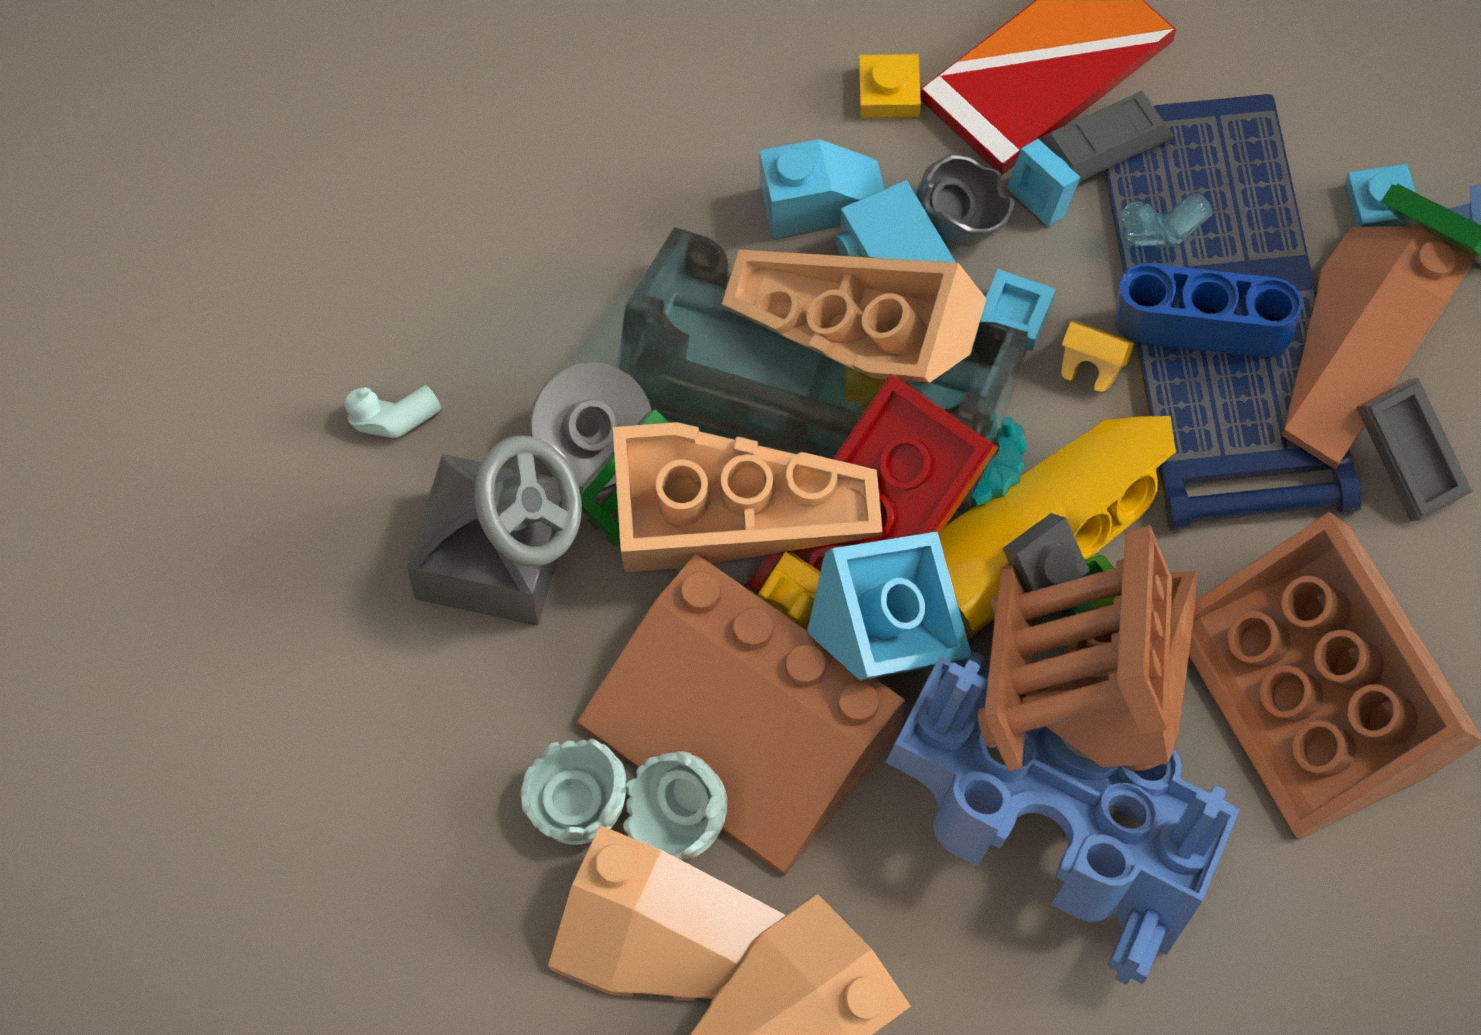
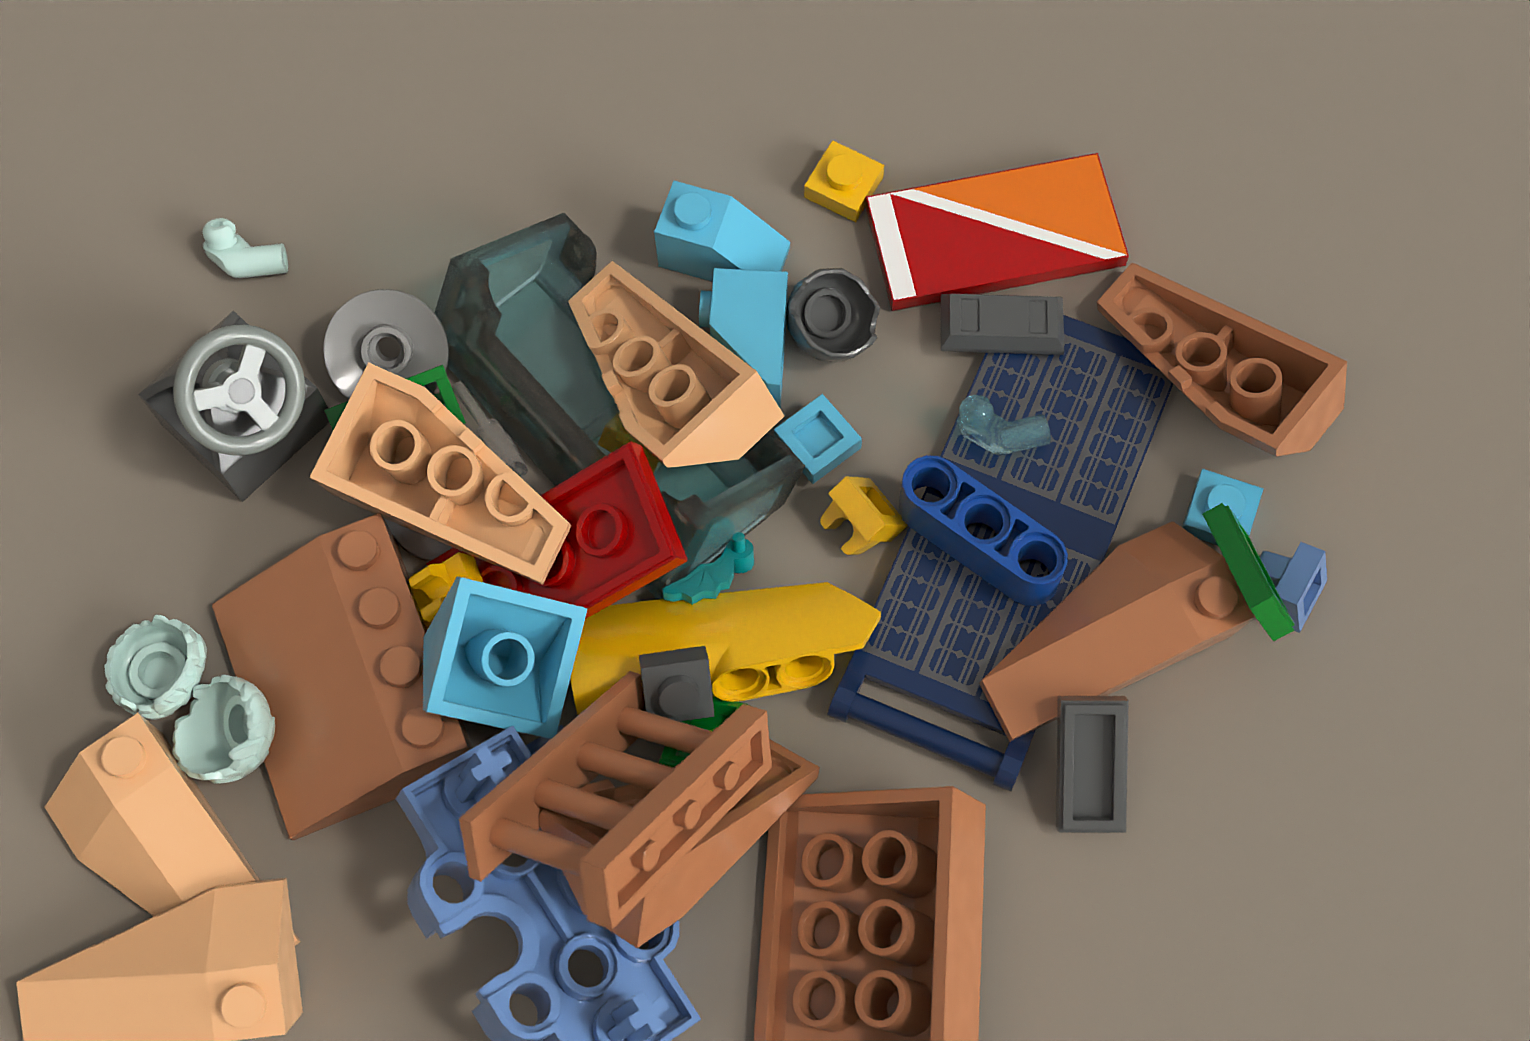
camera: 30 degrees right, 5 degrees up
(1043, 182) = (916, 335): medium azure plate -> none
(1319, 72) = (1229, 364): none -> nougat wedge

